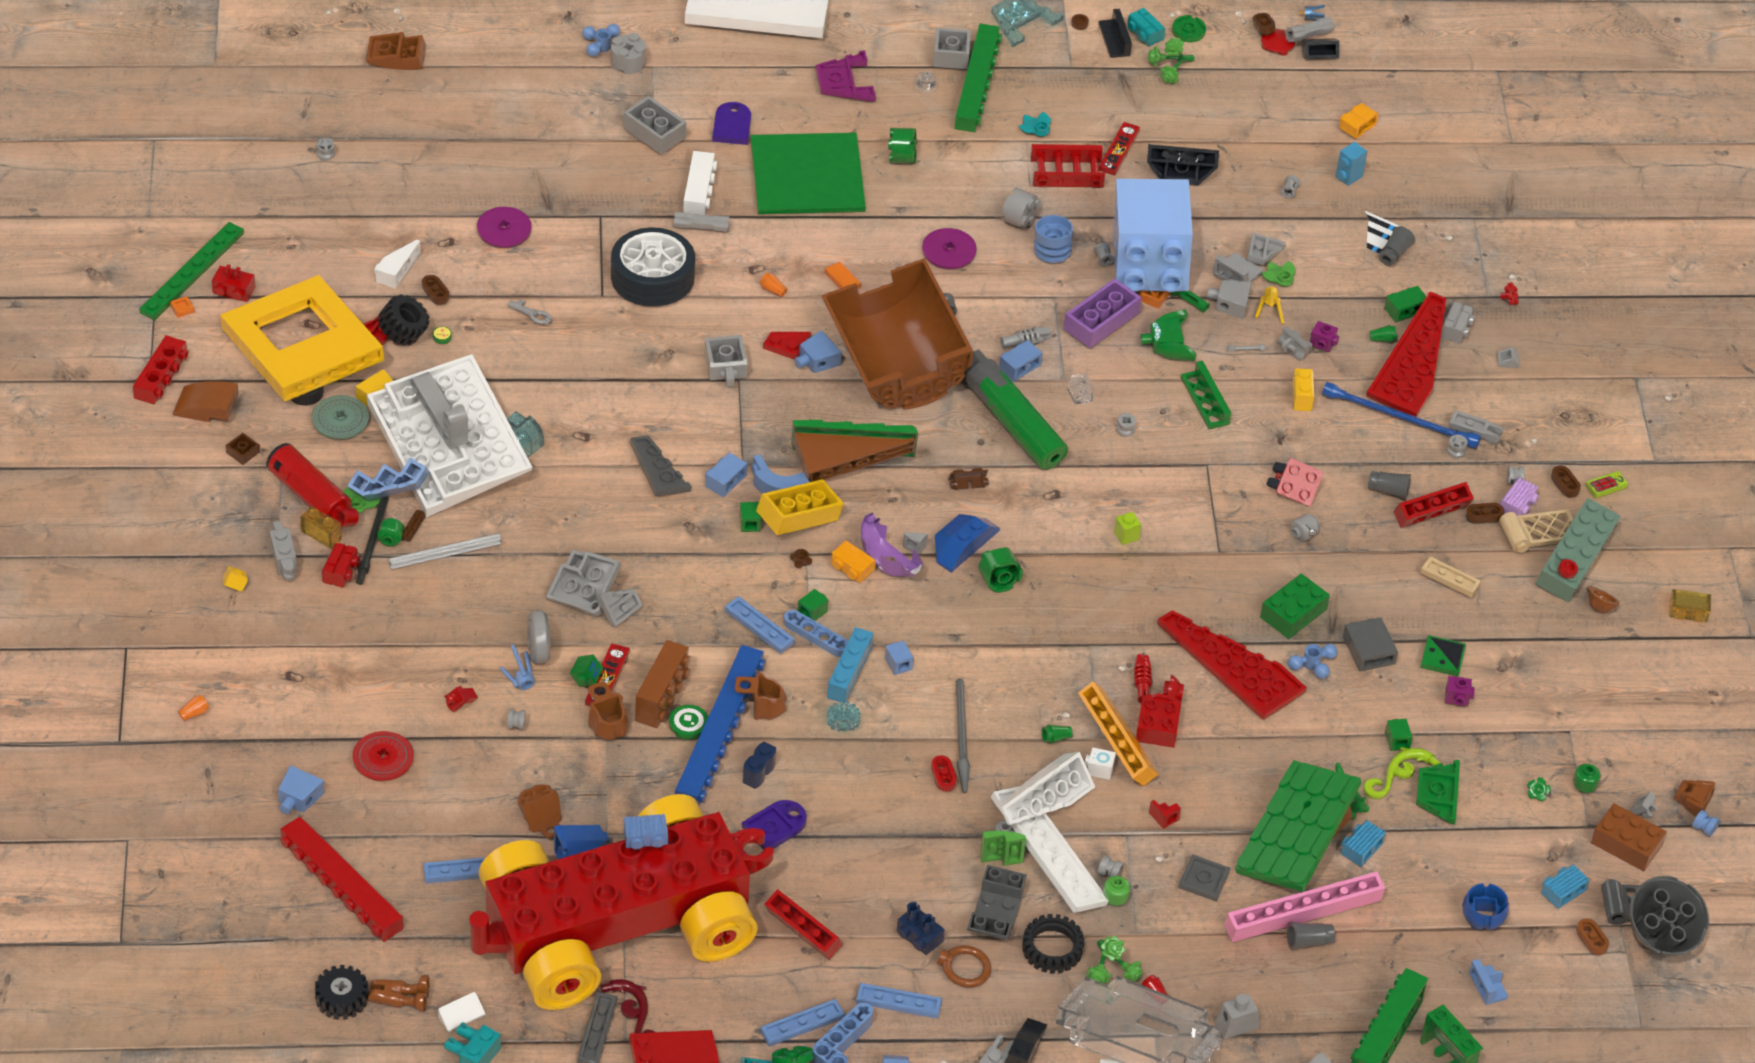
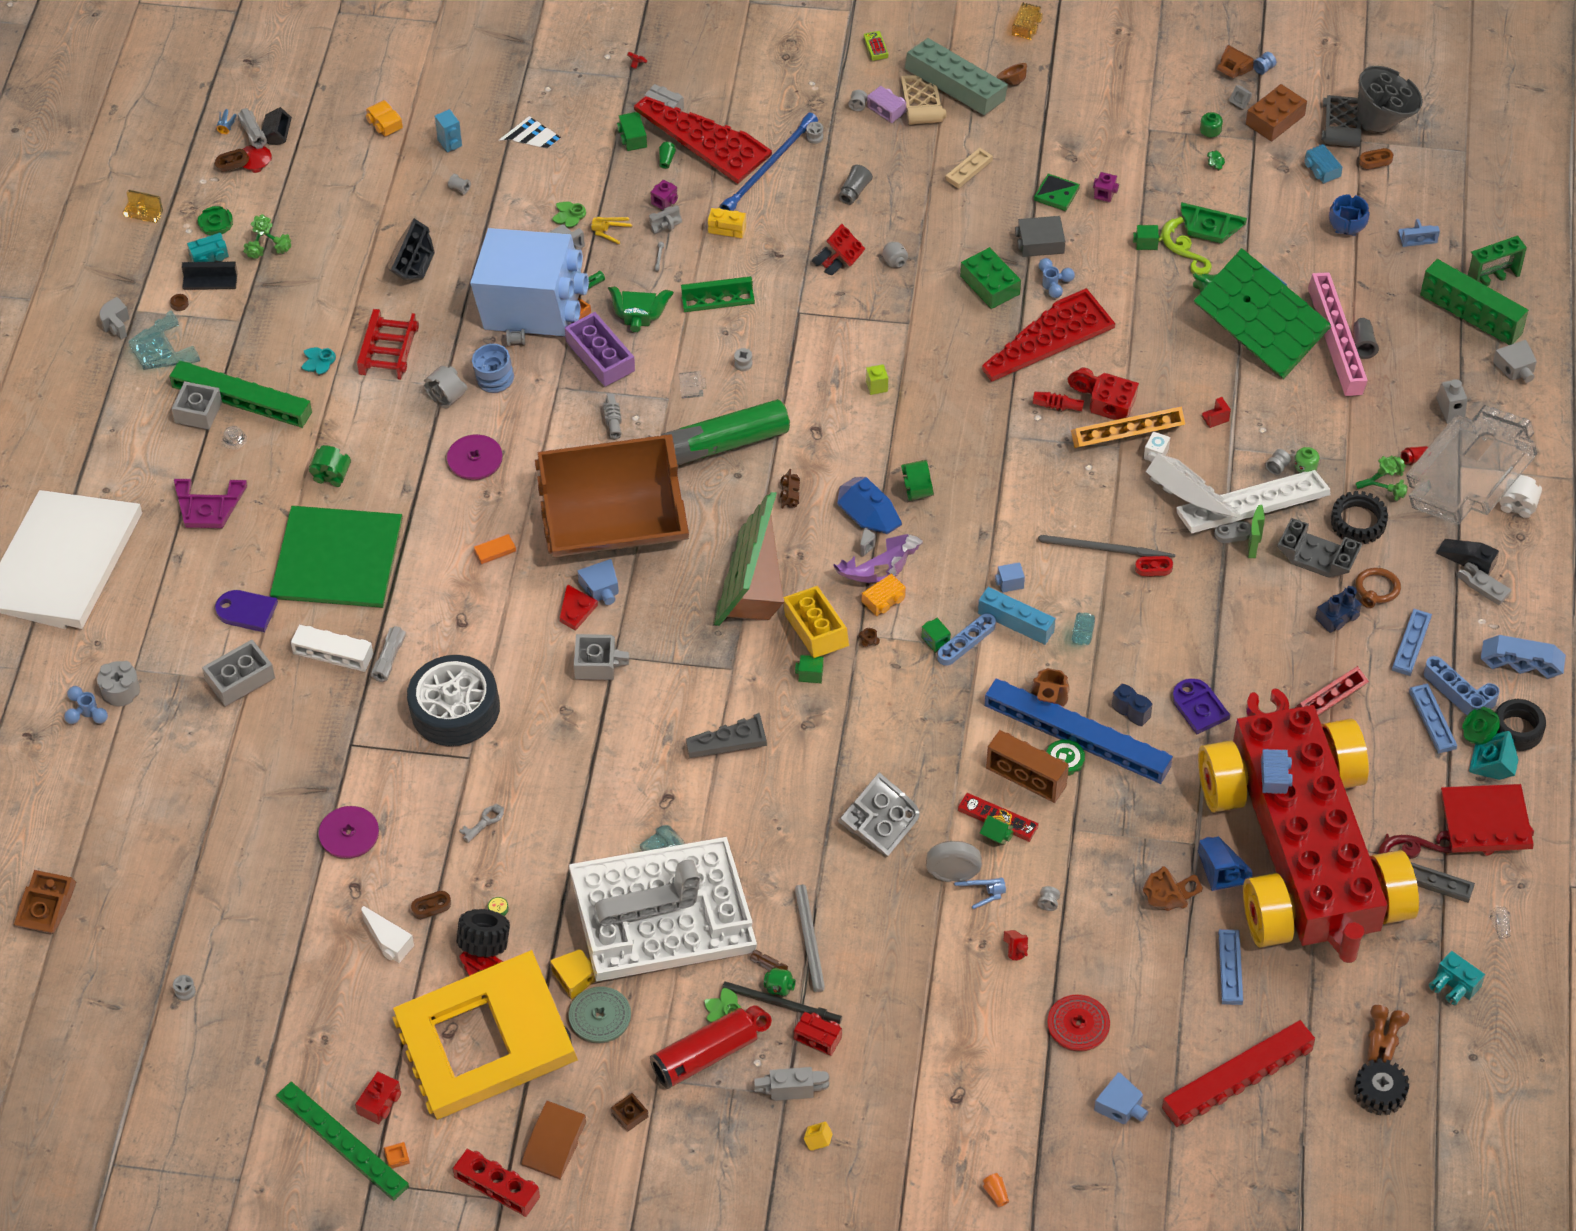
camera: 75 degrees left, 5 degrees up
(321, 527) = (764, 1045): clear yellow brick -> none
(389, 481) = (724, 968): medium blue brick -> none
(461, 1010) = (1408, 989): white slope -> none
(607, 714) = (1060, 817): dark orange piece -> none
(619, 604) = (914, 791): light grey wing -> none
(726, 474) = (751, 681): medium blue brick -> none
(759, 625) = (951, 682): medium blue plate -> none
(767, 481) = (771, 644): medium blue arch -> none
(773, 284) = (493, 606): orange cone -> none
(1020, 360) = (643, 421): medium blue brick -> none
(1056, 733) = (1116, 476): green cone -> none
(1119, 148) = (368, 301): tile -> none
(1204, 877) = (1289, 401): dark grey tile -> none
(1231, 297) = (597, 251): light grey torso -> none
(1263, 248) = (536, 219): light grey wing -> none
(1397, 245) = (558, 123): dark grey plant -> none
(1433, 504) = (888, 159): red brick -> none
(1468, 423) = (792, 116): light grey hinge -> none
(1484, 512) = (897, 130): reddish brown plate -> none
(1509, 358) = (711, 78): light grey slope -> none
(1567, 483) = (869, 70): reddish brown plate -> none
(1567, 568) = (991, 80): red tile -> none

